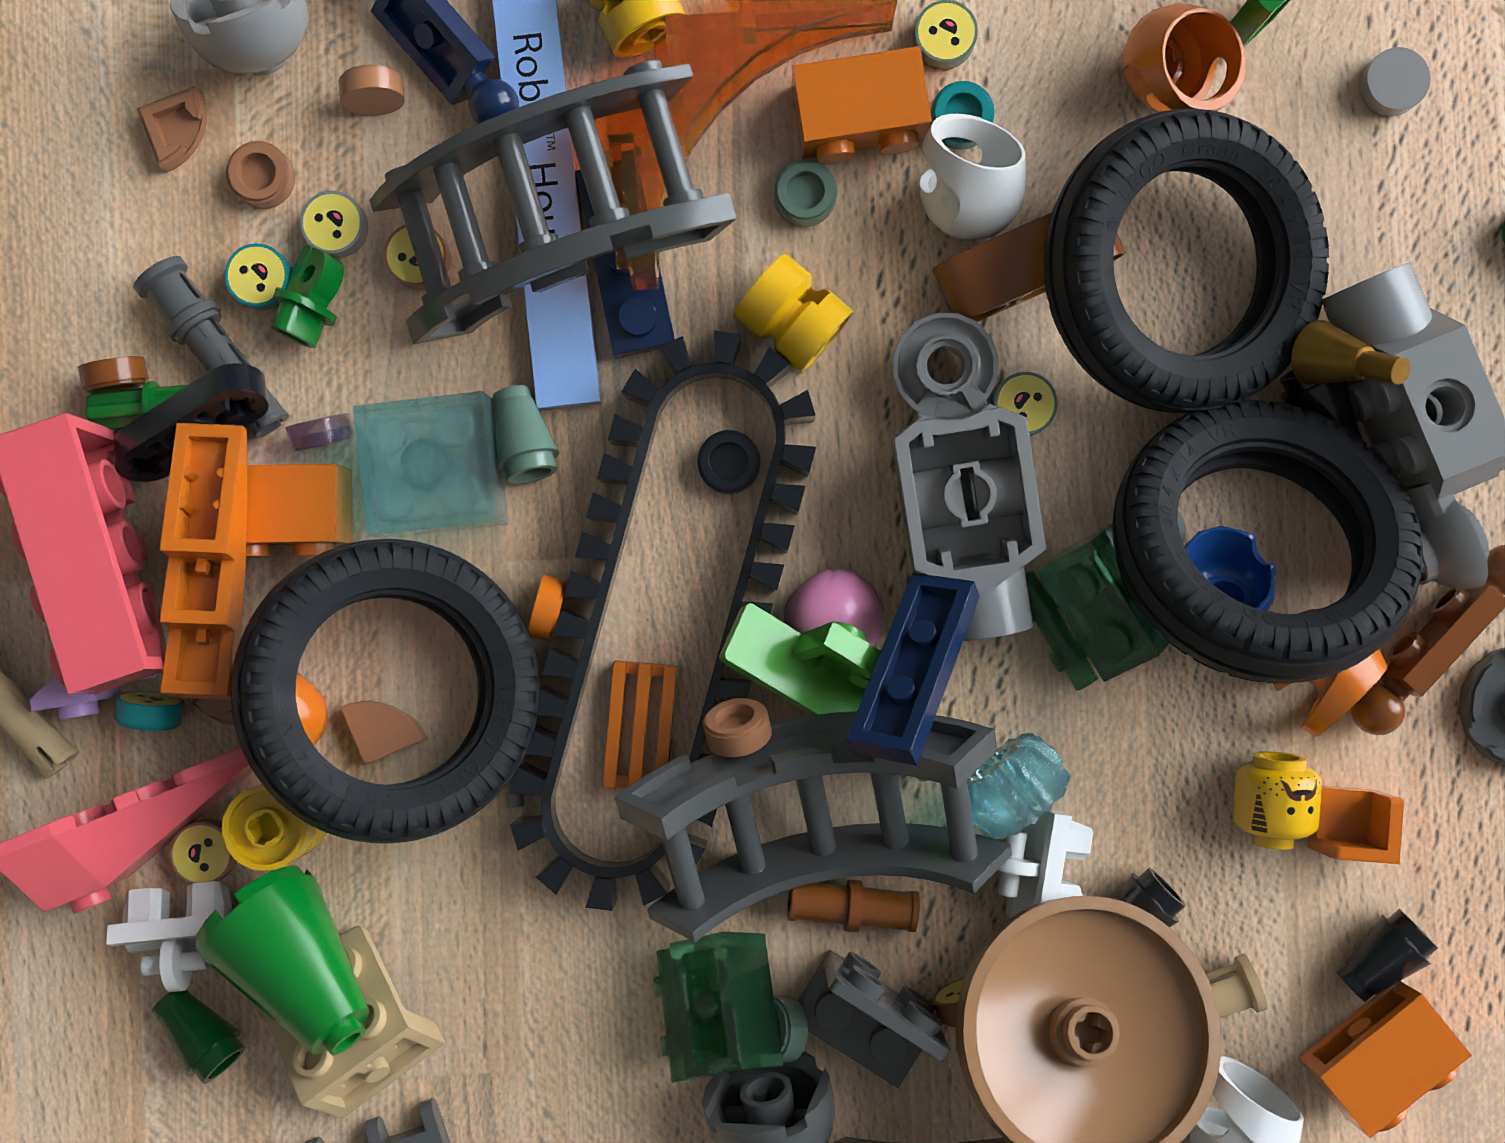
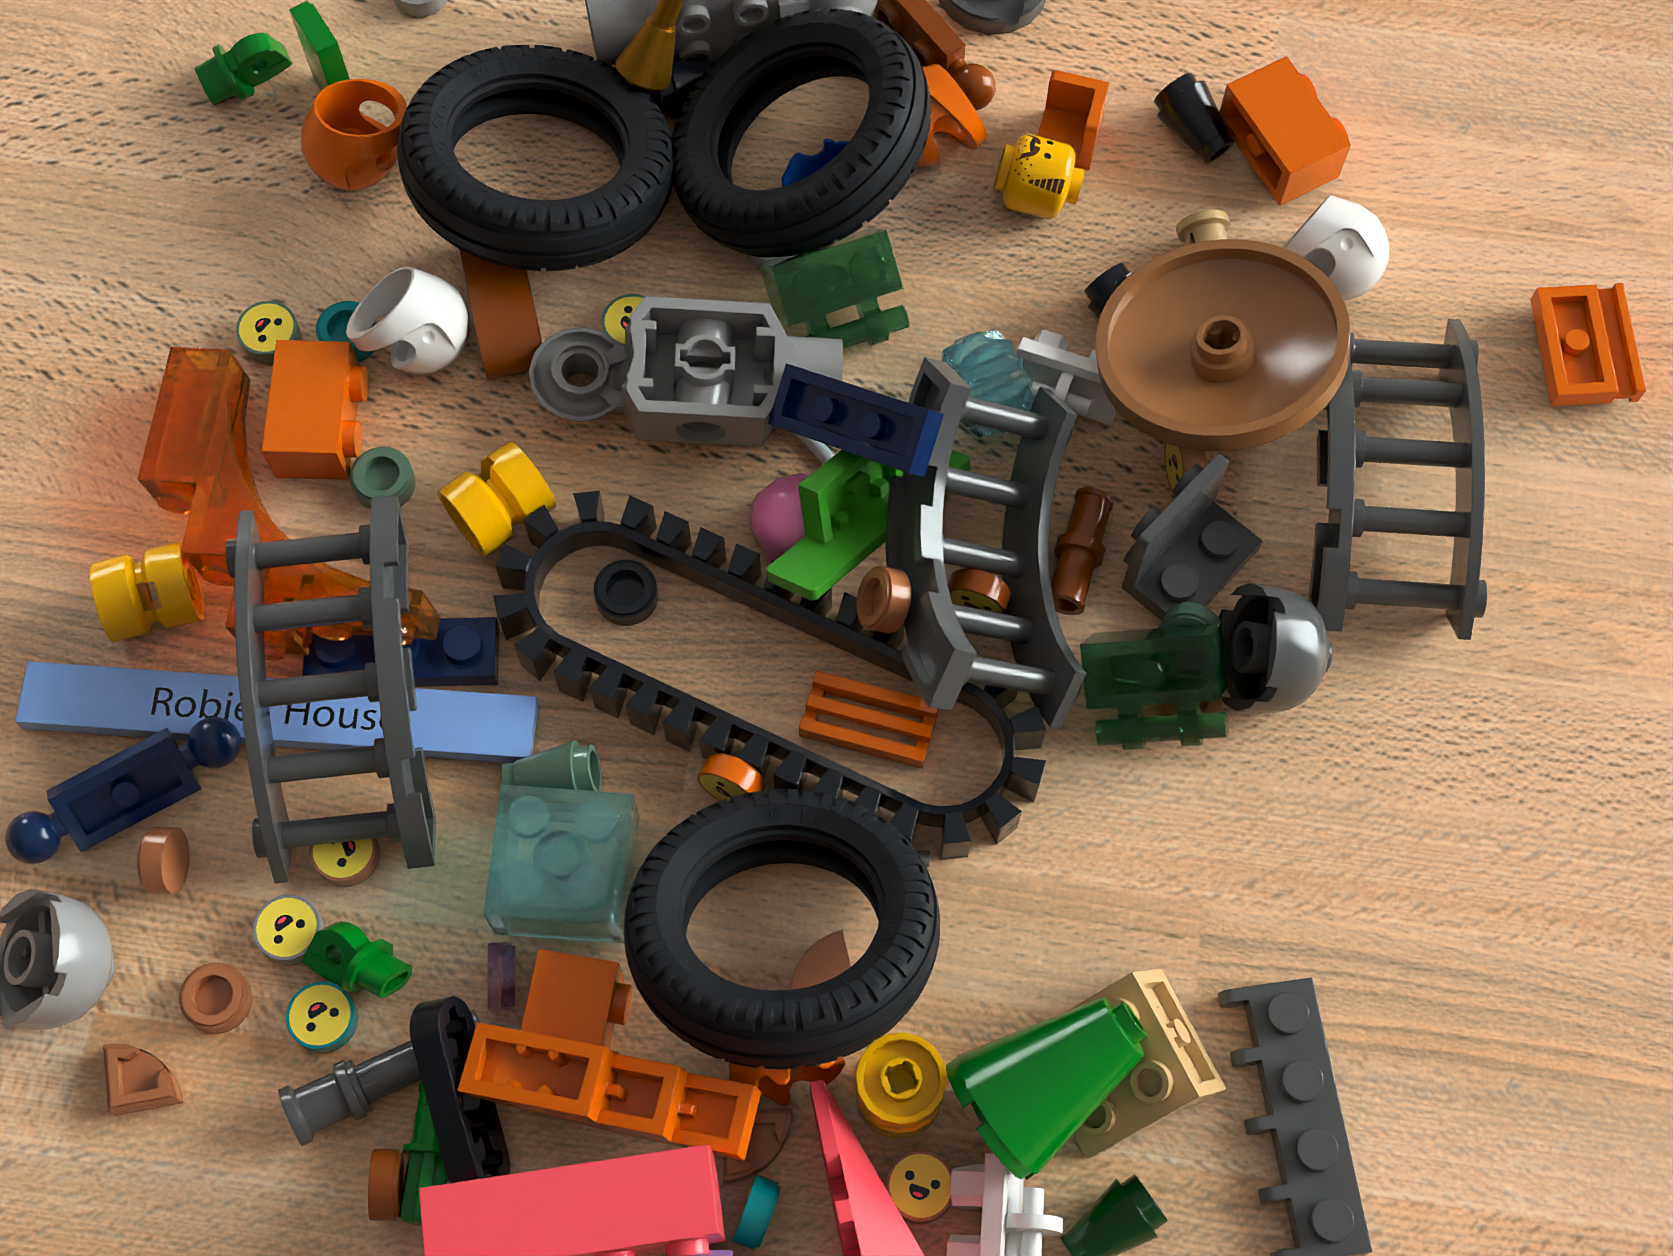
camera: 85 degrees left, 20 degrees down
(784, 814) = (979, 590): none -> dark orange tile

